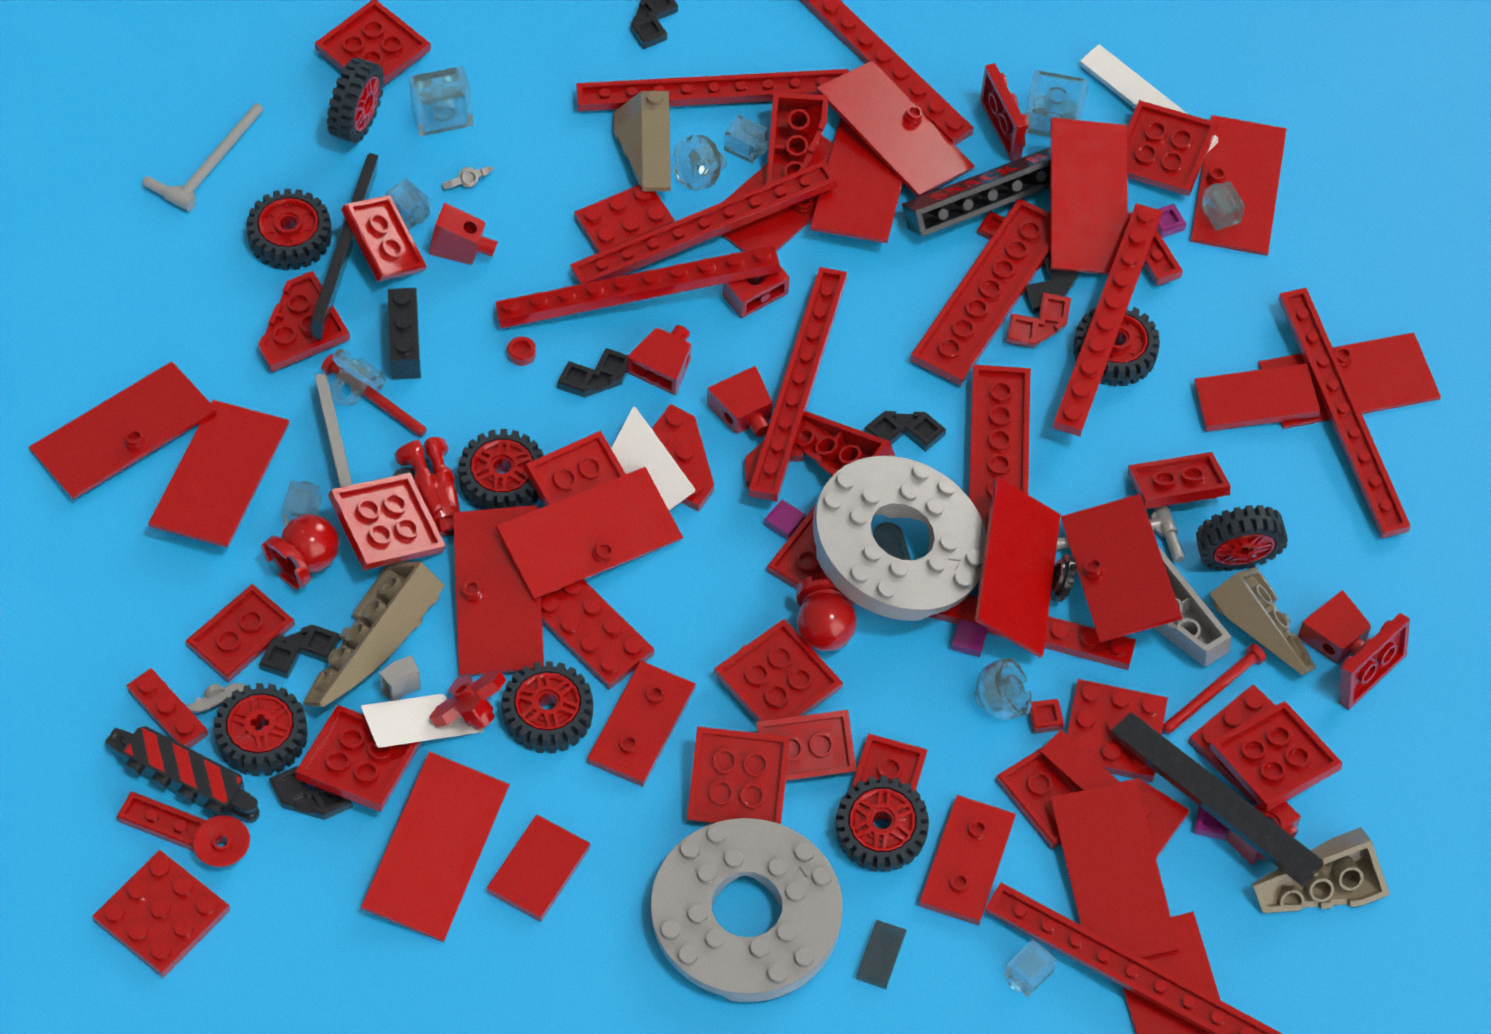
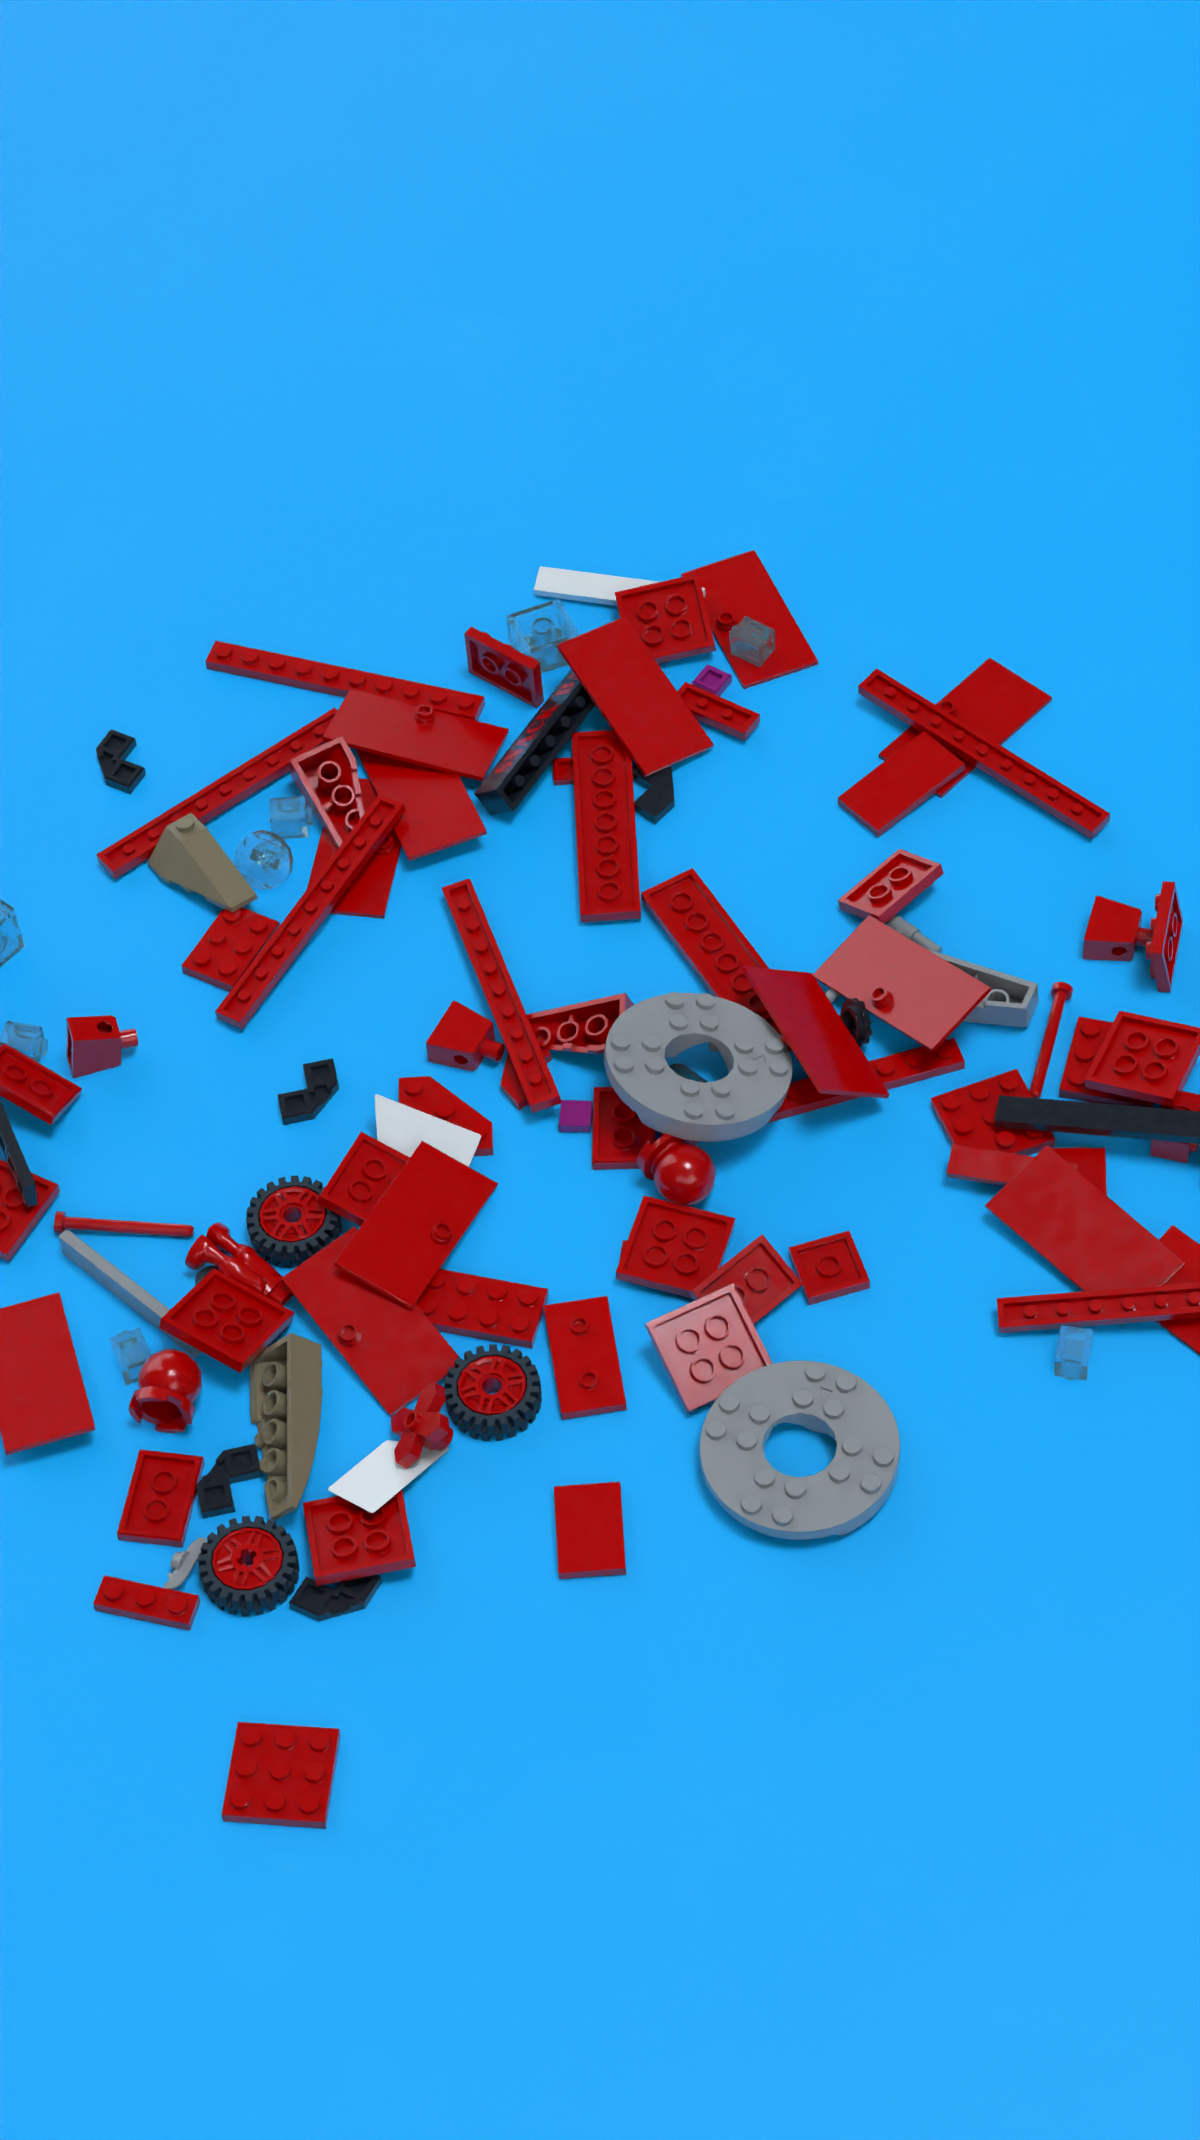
camera: 25 degrees left, 5 degrees down
(159, 820) = (223, 1697): red tile -> none
(183, 772) = (209, 1644): black hinge -> none
(218, 830) = (287, 1668): red piece -> none
(357, 374) = (97, 1215): clear light blue tile -> none
(400, 678) = (343, 1446): light grey piece -> none
(404, 333) = (109, 1156): black brick -> none
(435, 847) = (485, 1567): red piece -> none
(467, 177) = (57, 991): light grey piece -> none
(521, 351) = (226, 1111): red tile -> none
(637, 286) = (292, 995): red plate -> none
(662, 358) = (362, 1044): red torso -> none
(748, 298) = (396, 935): red brick -> none
(877, 846) = (857, 1334): wheel -> none
(881, 954) = (939, 1420): clear smoke tile -> none
(917, 426) = (629, 972): black tile -> none
(967, 860) = (952, 1300): red plate -> none
(969, 638) = (812, 1120): magenta tile -> none
(1002, 690) = (876, 1144): clear light blue cylinder -> none
(1030, 787) = (961, 1209): red tile -> none
(1033, 331) = (677, 818): red tile -> none
(1046, 716) = (925, 1145): red tile -> none
(1107, 320) = (731, 789): red plate -> none
(1134, 348) = (749, 807): black wheel -> none
(1209, 826) = (1128, 1149): magenta tile -> none
(1241, 538) = (984, 900): black wheel -> none
(1250, 605) = (1026, 954): dark tan wedge -> none

